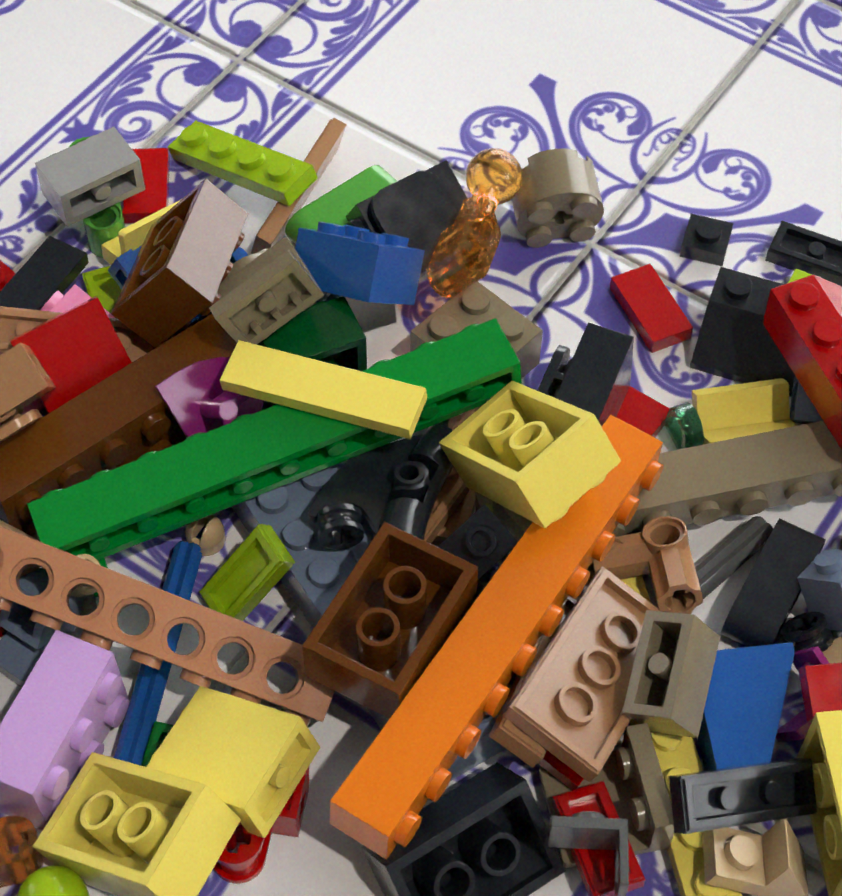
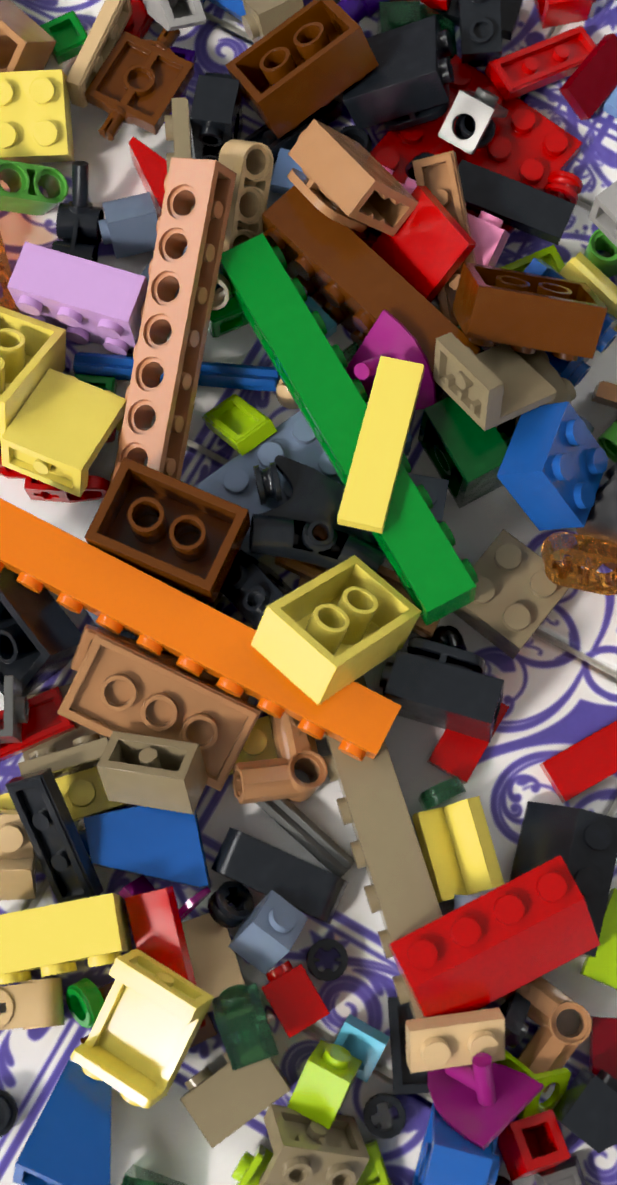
camera: 85 degrees right, 20 degrees up
(17, 252) = (564, 185): none -> red bush

